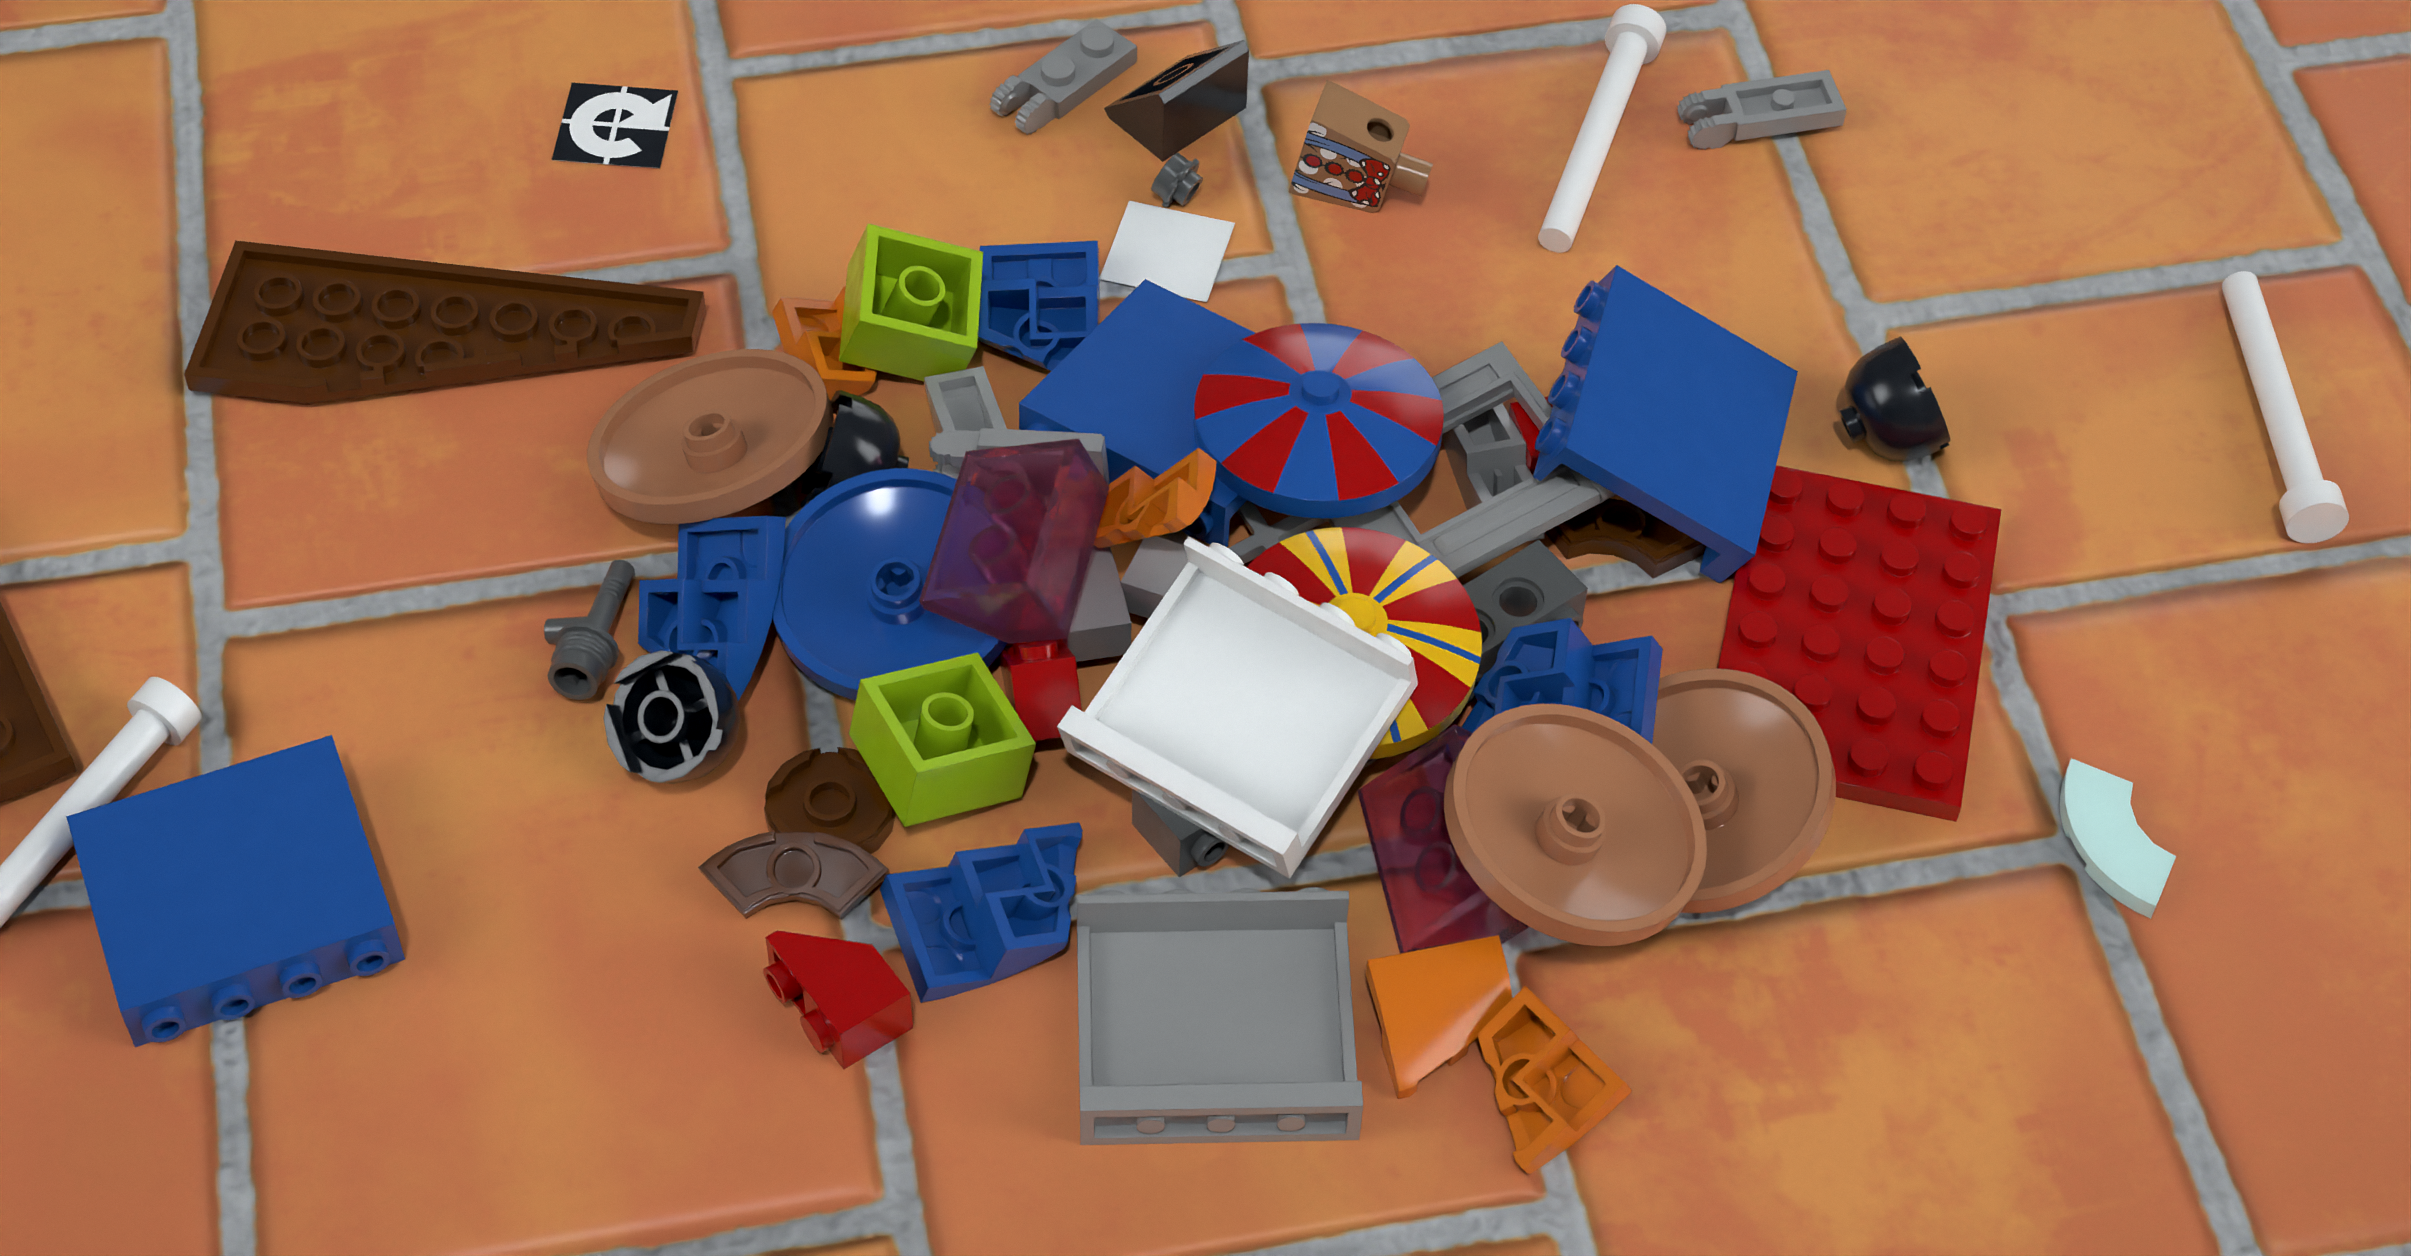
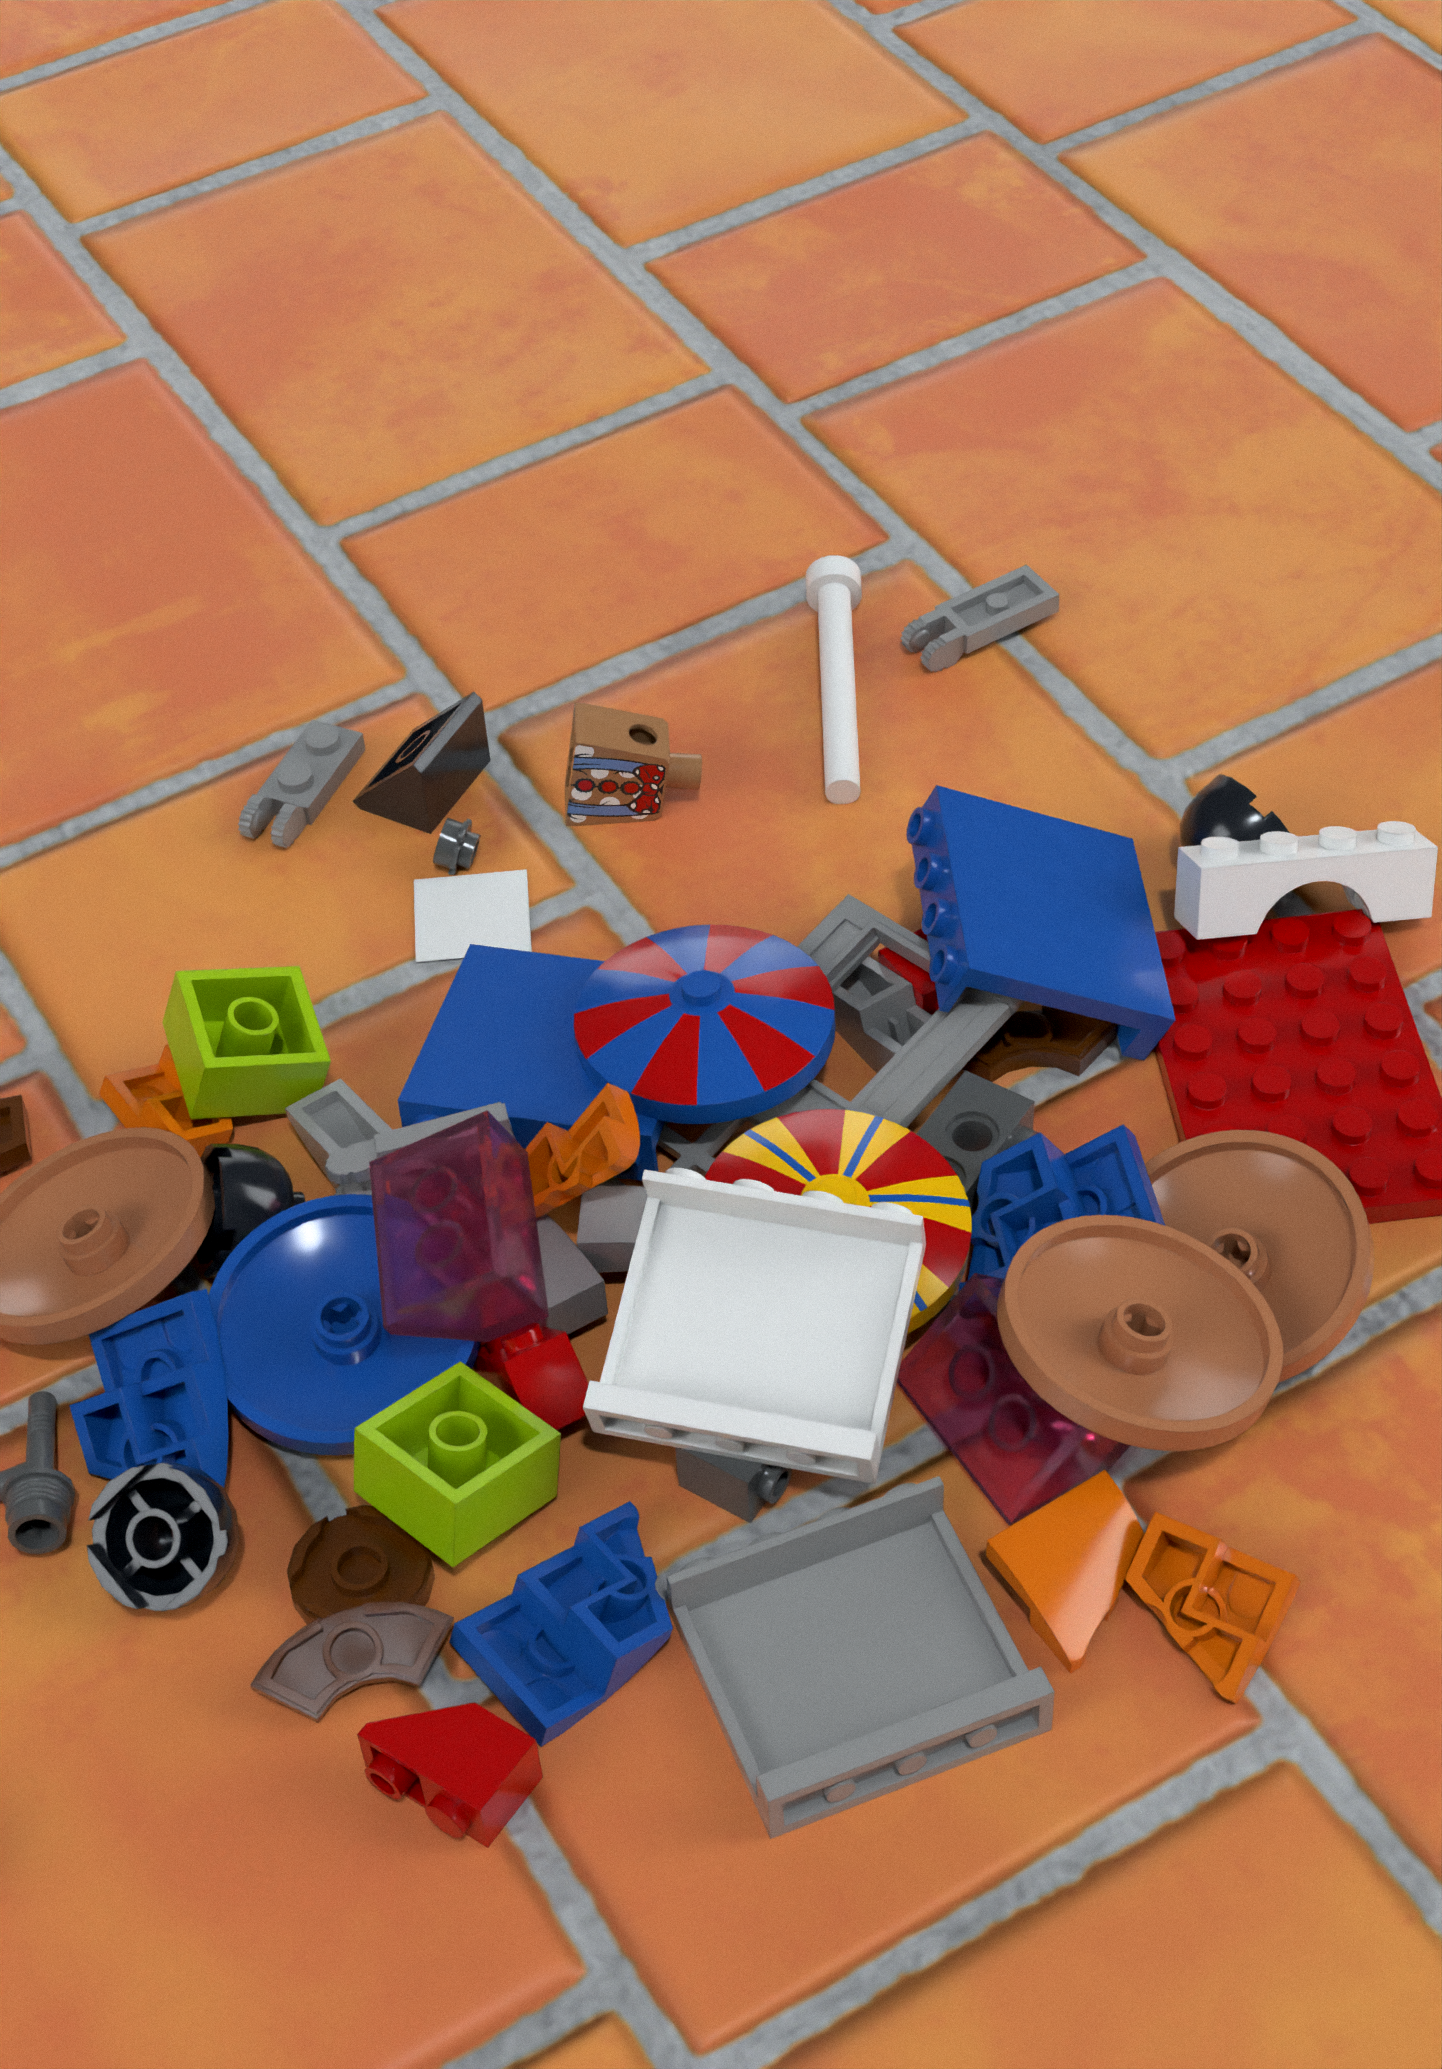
camera: 15 degrees left, 5 degrees down
(1039, 298) = (371, 998): blue slope -> none
(1868, 444) = (1232, 884): none -> white arch

